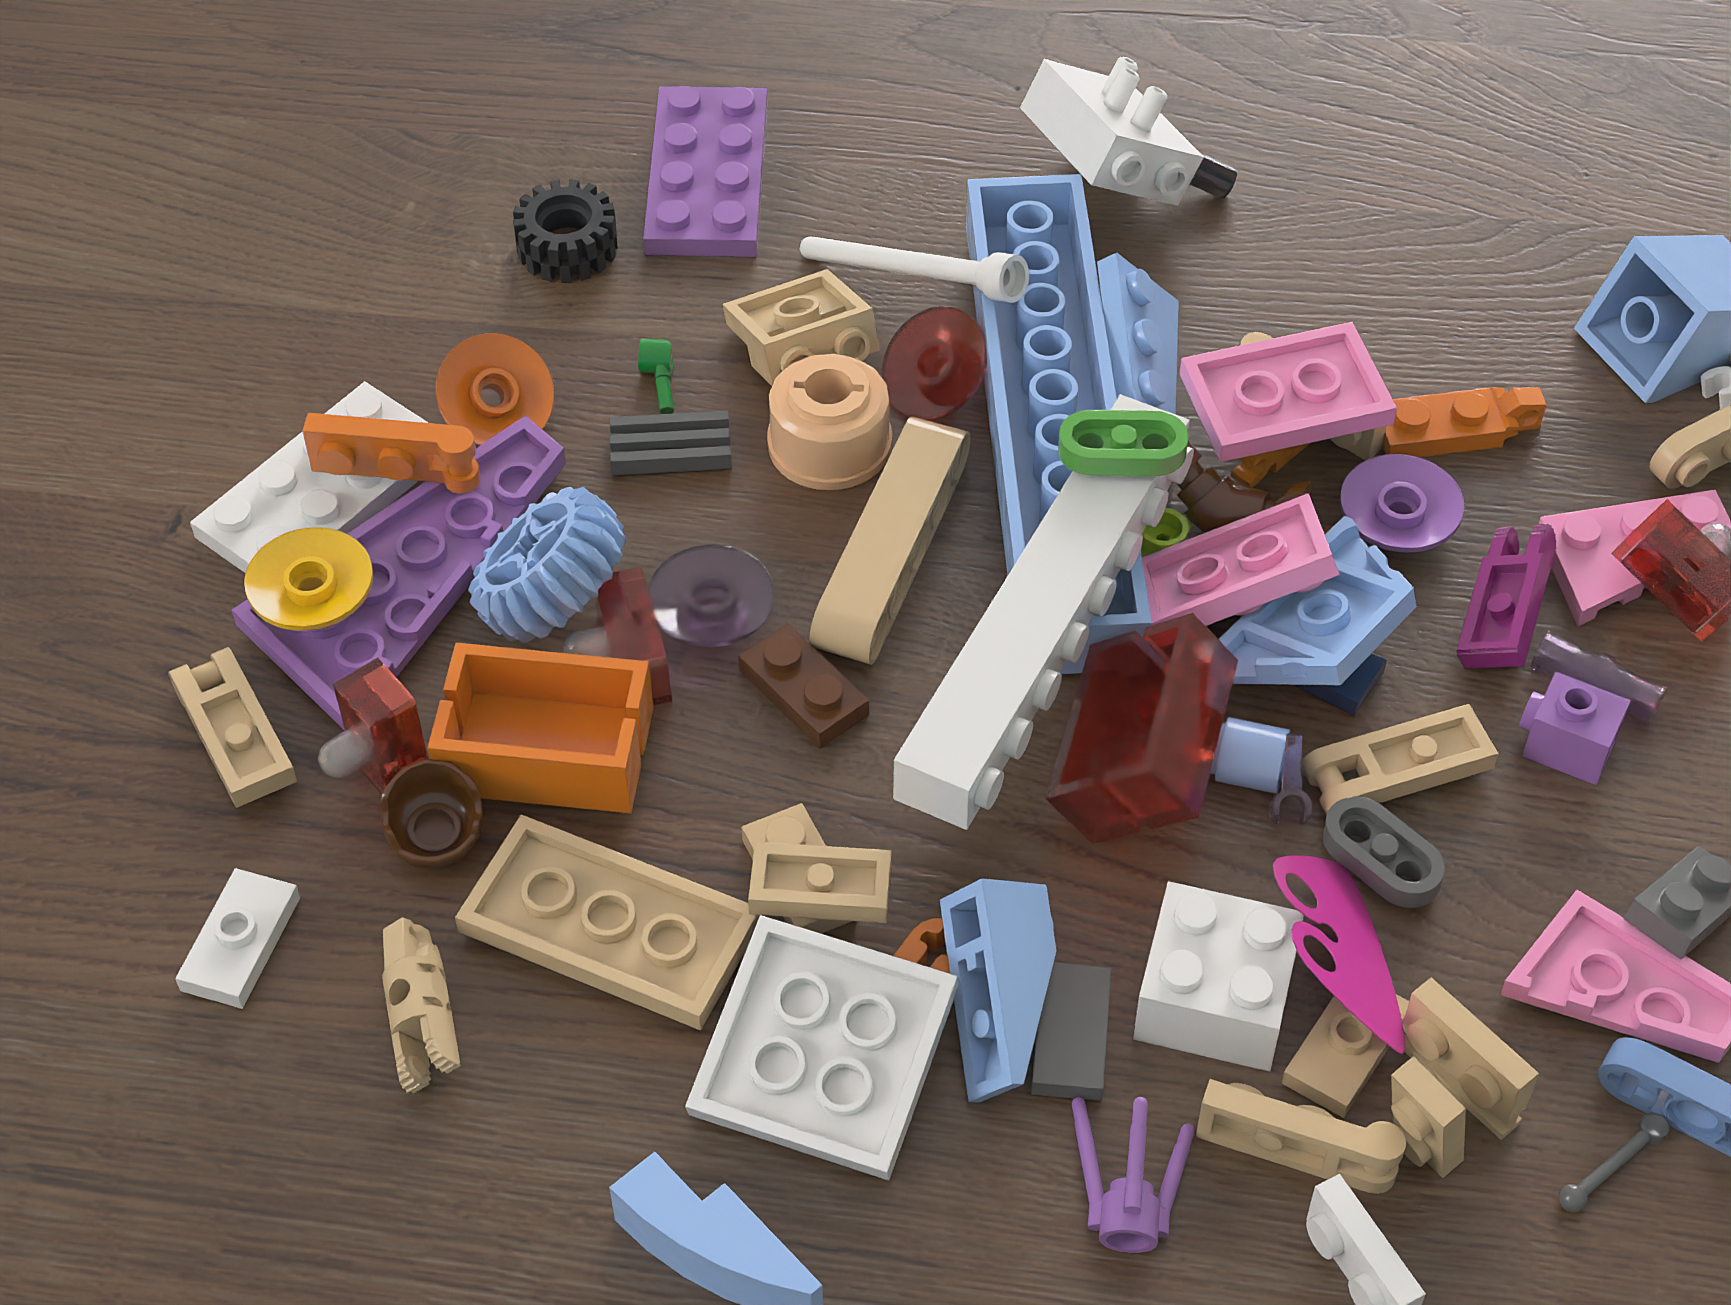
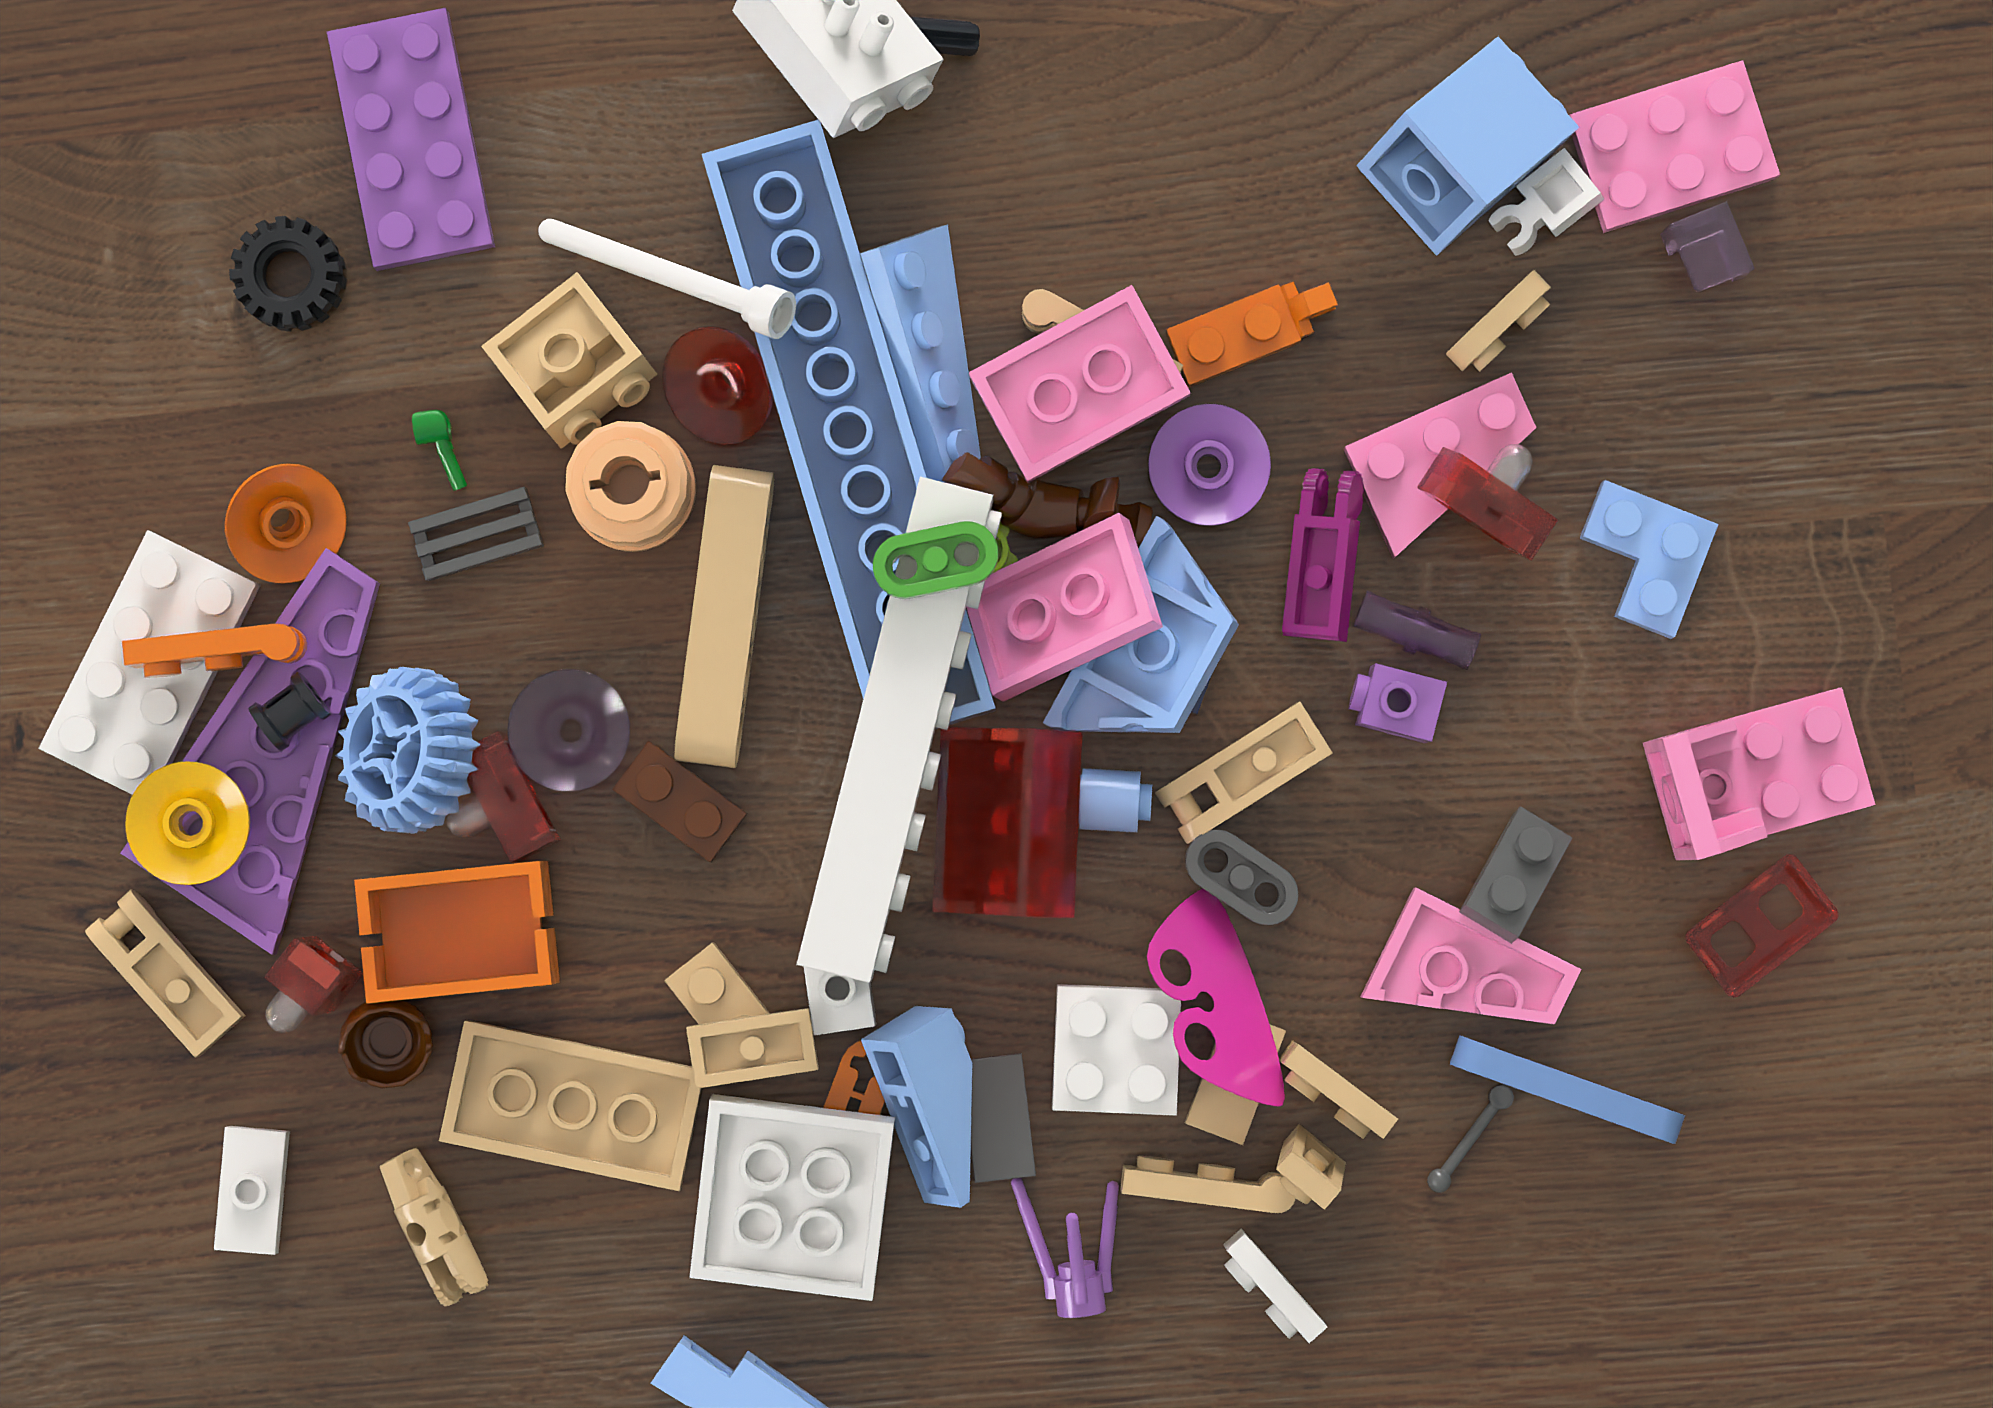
camera: 10 degrees left, 35 degrees up
(444, 513) = (289, 711): none -> black bush
(923, 866) = (838, 1002): none -> white brick
(1292, 781) = (1150, 831): clear purple hand -> none

